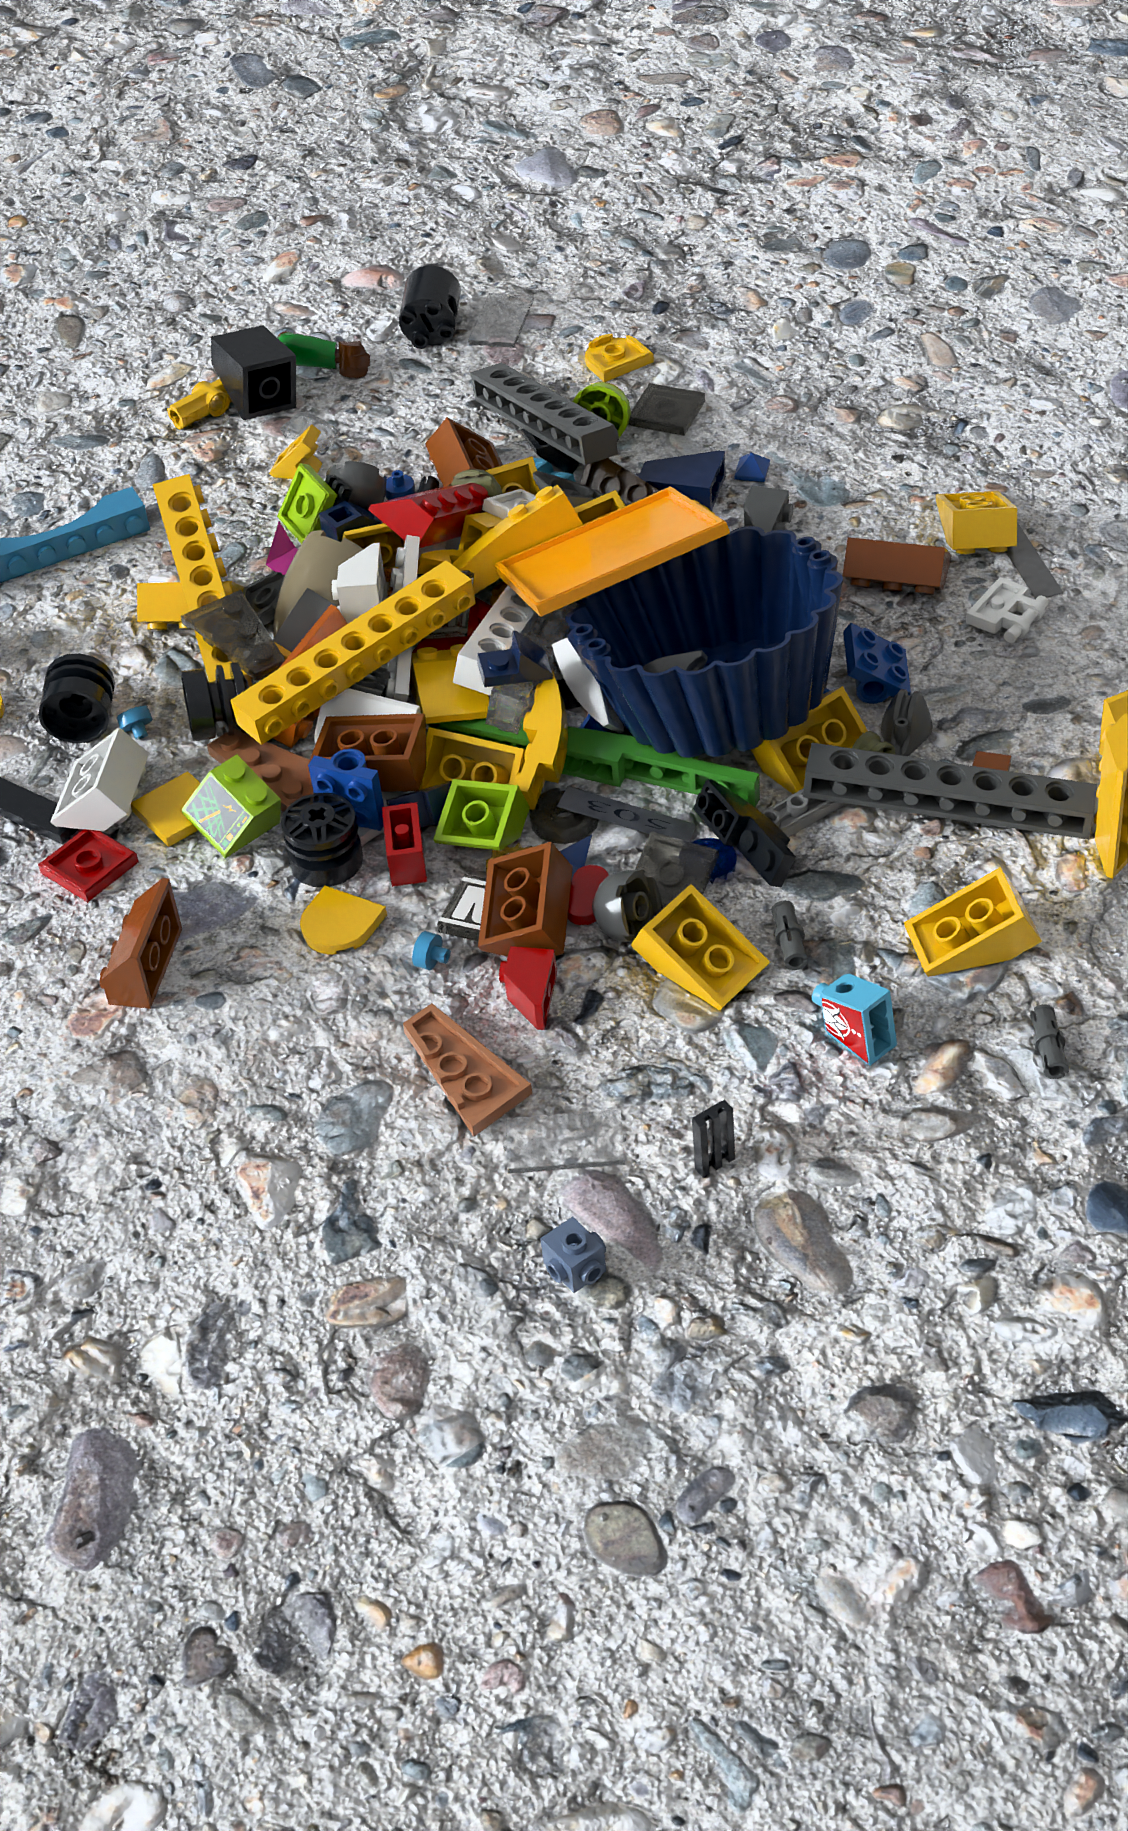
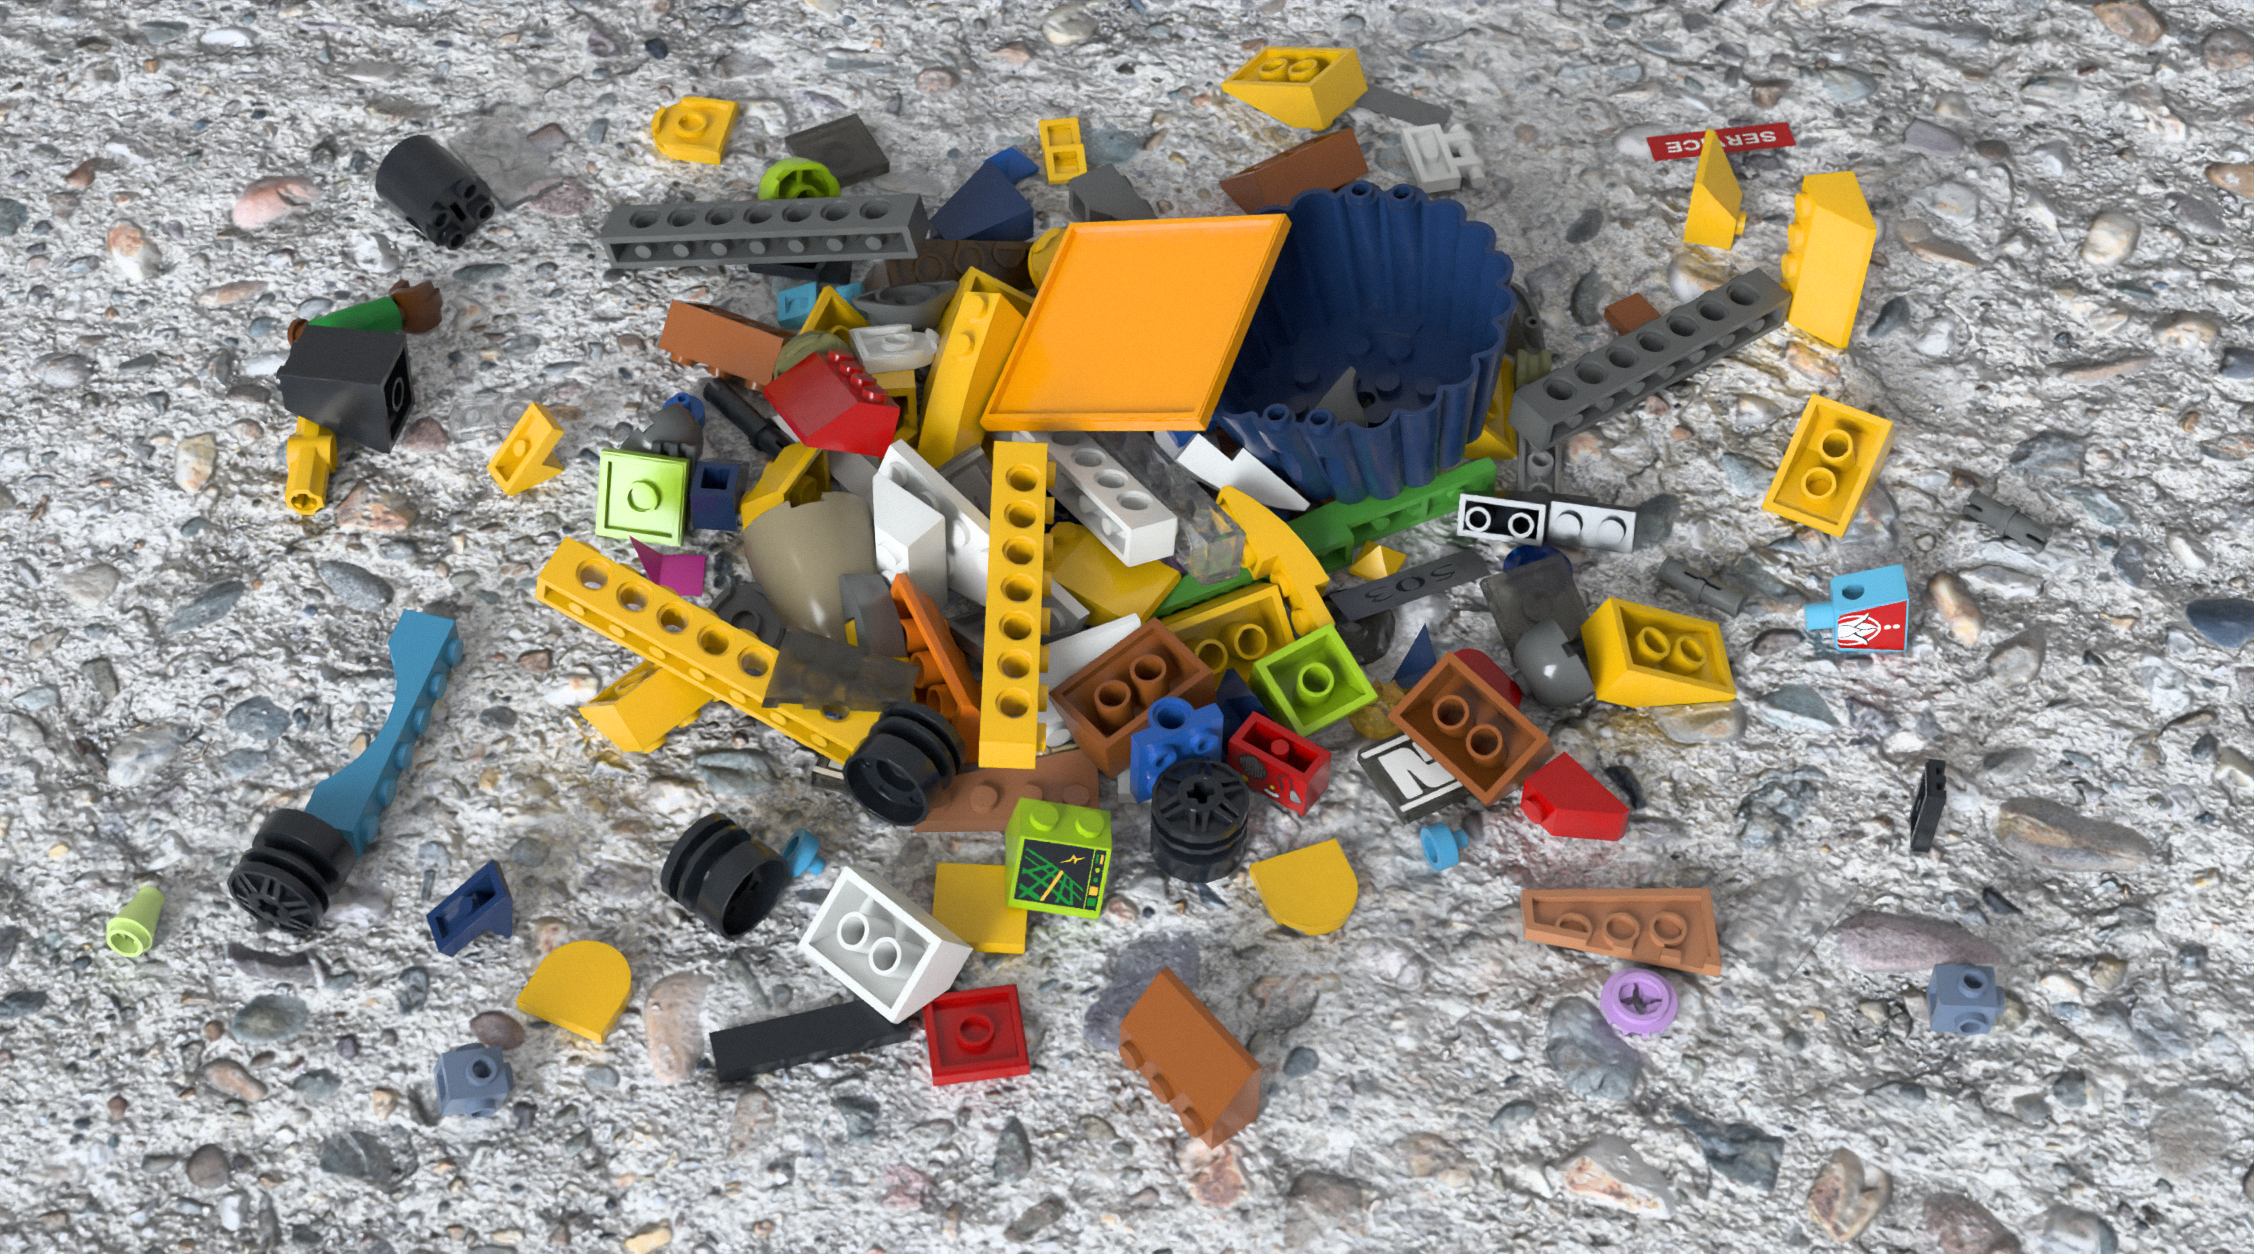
camera: 55 degrees left, 5 degrees up
(409, 1099) = (1653, 992): none -> lavender gear
(517, 665) = (1197, 504): dark blue slope -> none
(632, 792) = (1377, 562): none -> yellow slope
(792, 475) = (1061, 149): none -> yellow slope

